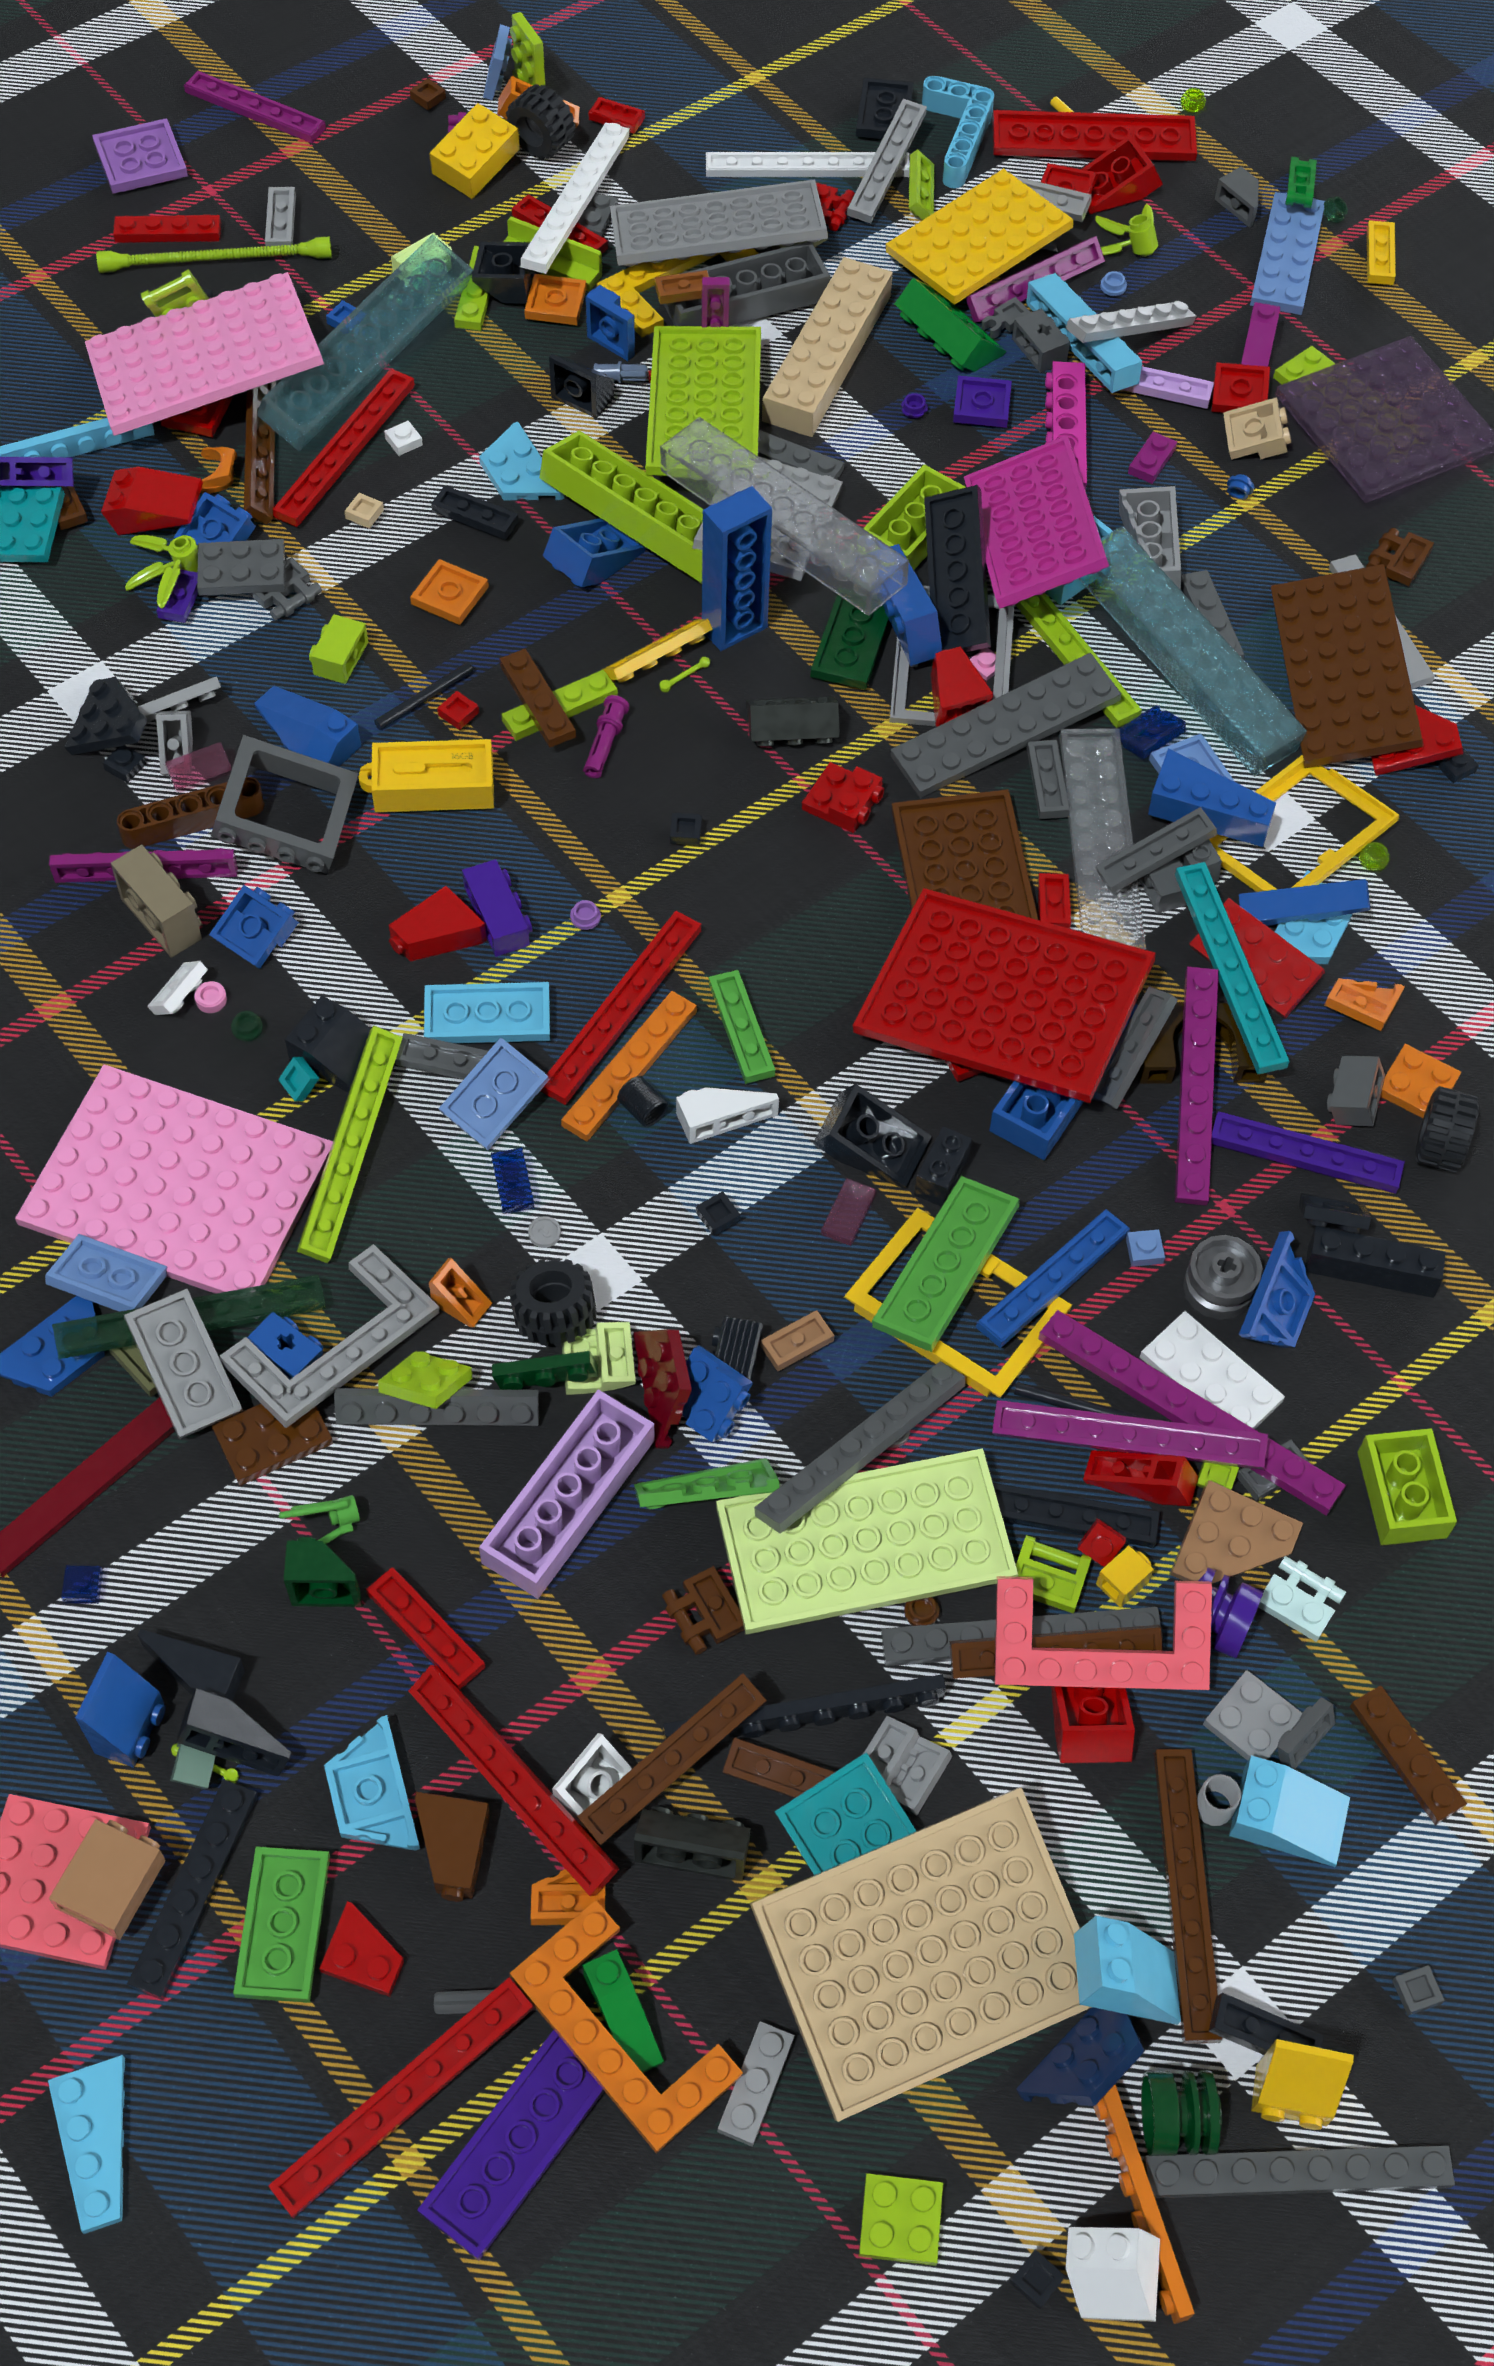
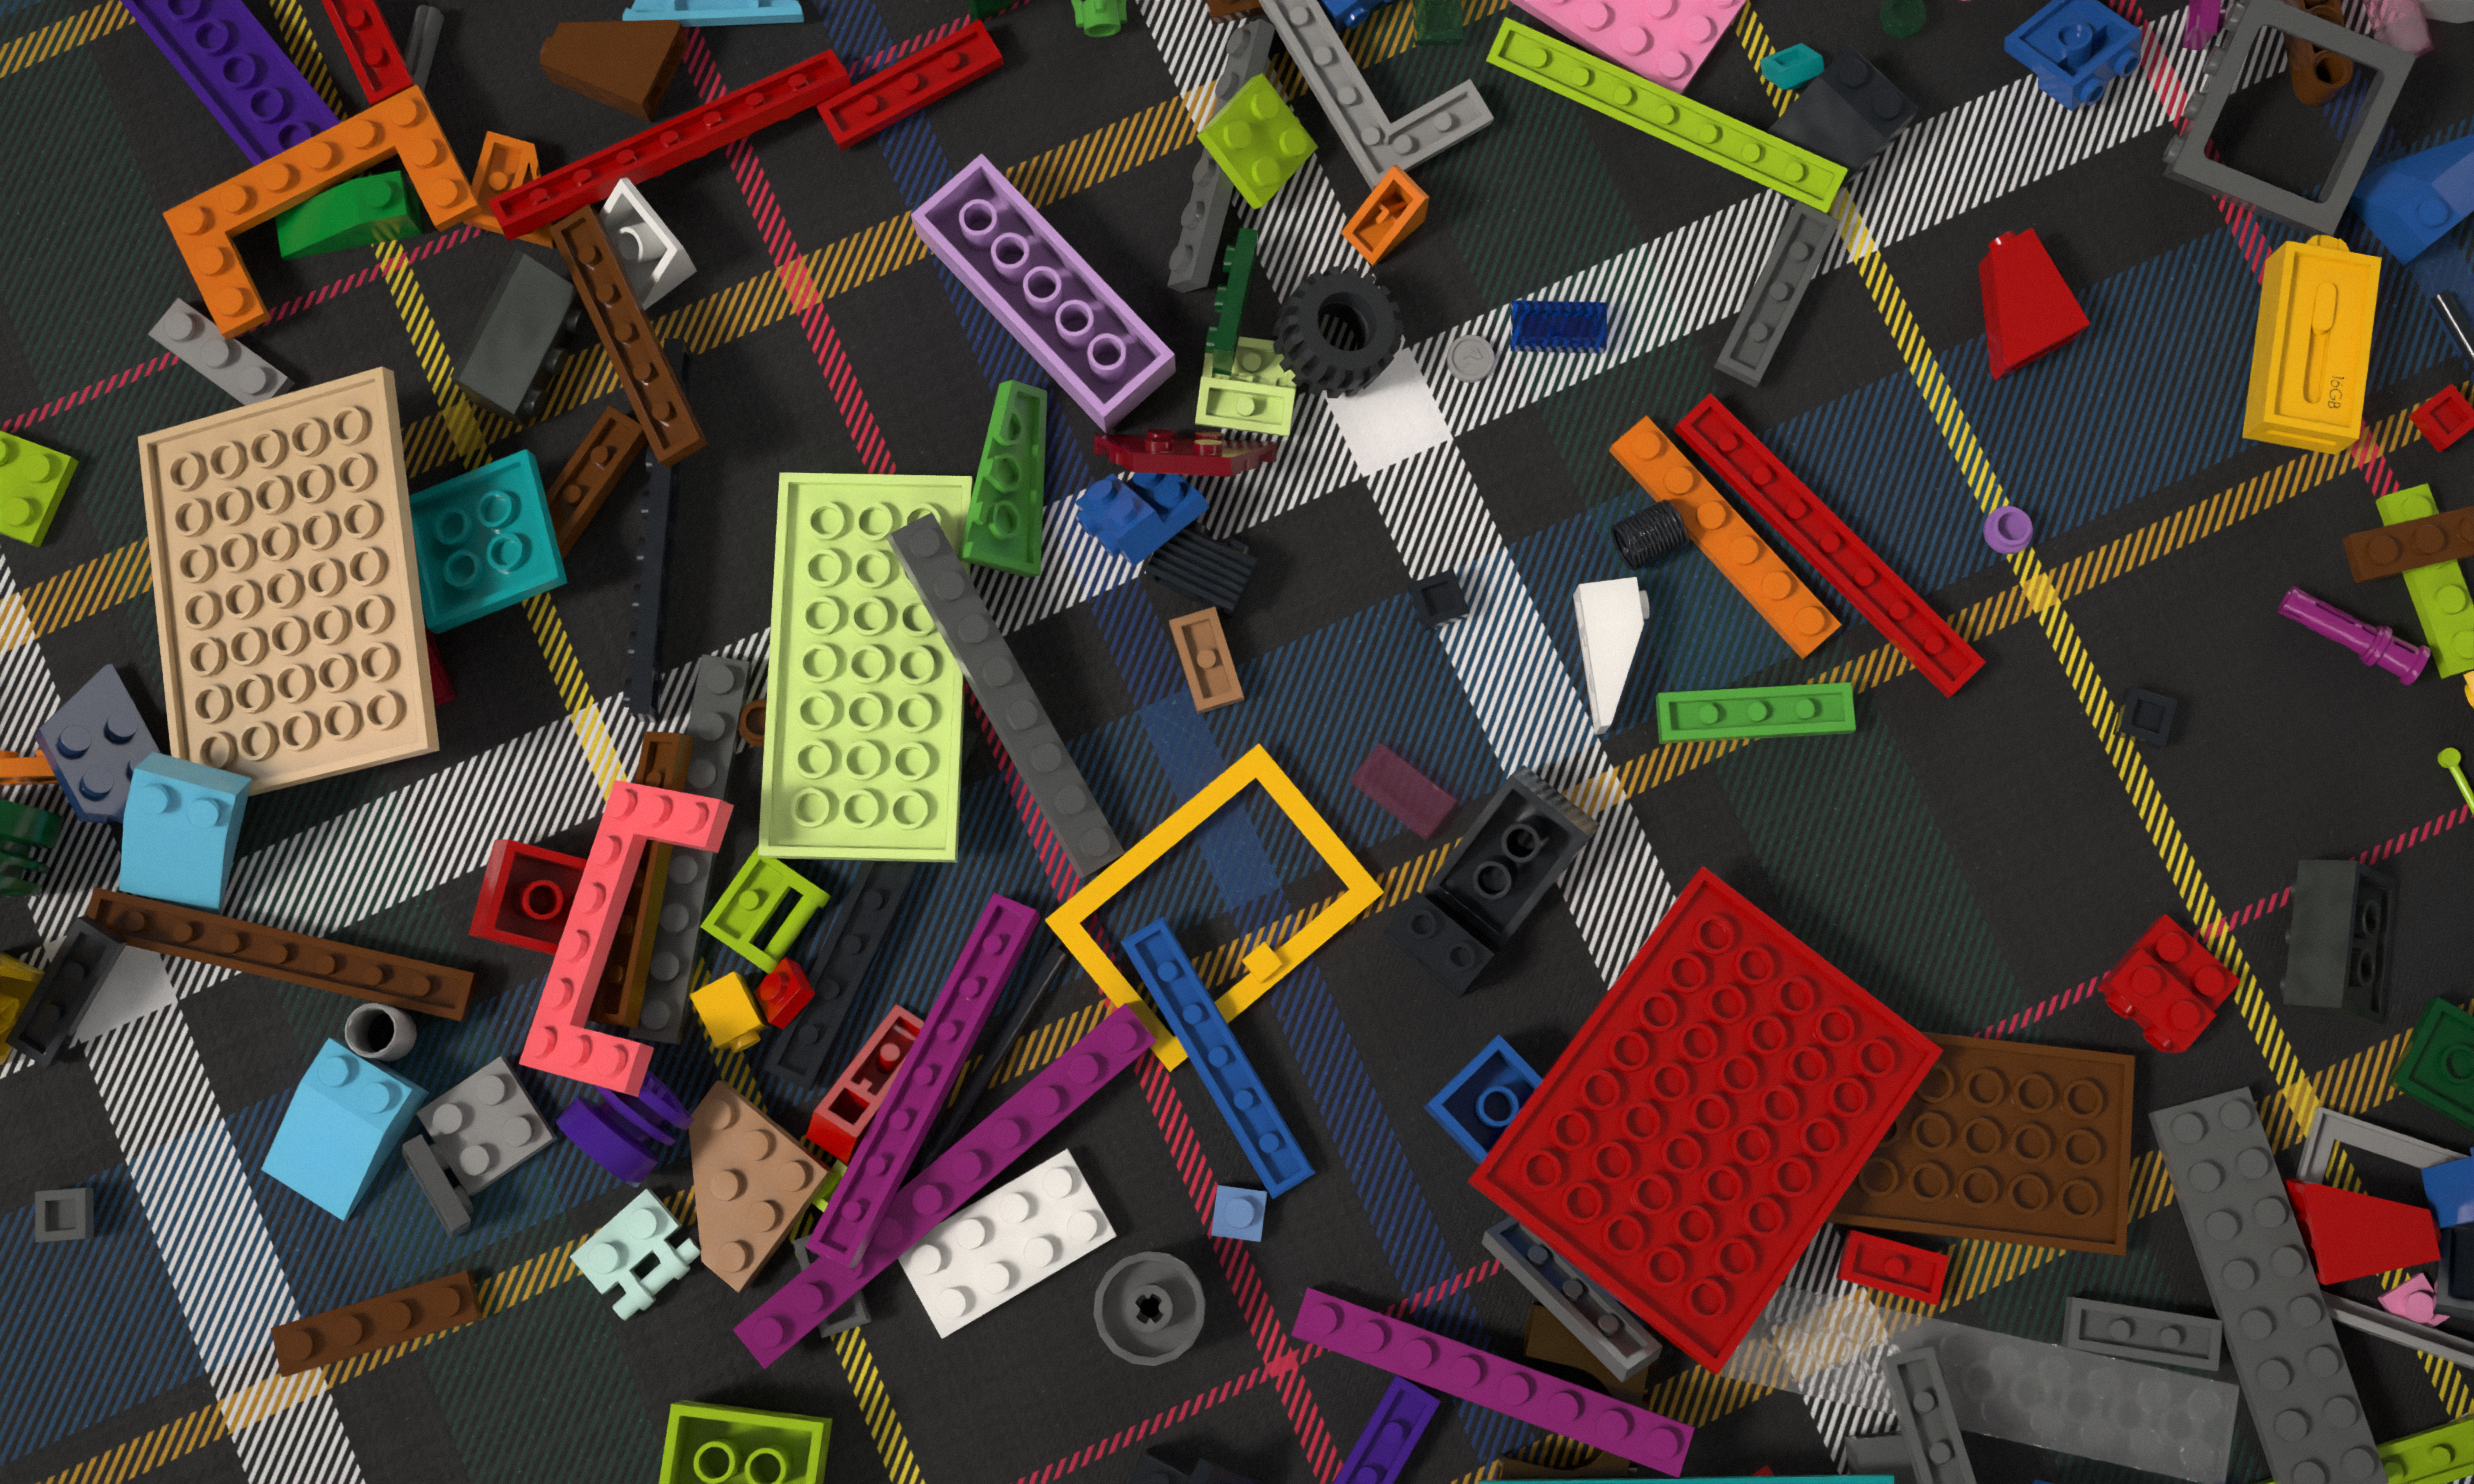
camera: 105 degrees right, 20 degrees up
(487, 1012) = (1855, 349): medium azure plate -> none
(494, 1093) = (1702, 323): medium blue plate -> none
(497, 907) = (2045, 398): dark purple brick -> none
(714, 1605) = (849, 449): reddish brown plate -> none
(907, 1762) = (560, 640): light grey slope -> none
(945, 1264) = (1269, 899): bright green plate -> none
(1280, 1298) = (1086, 1379): blue wing -> none

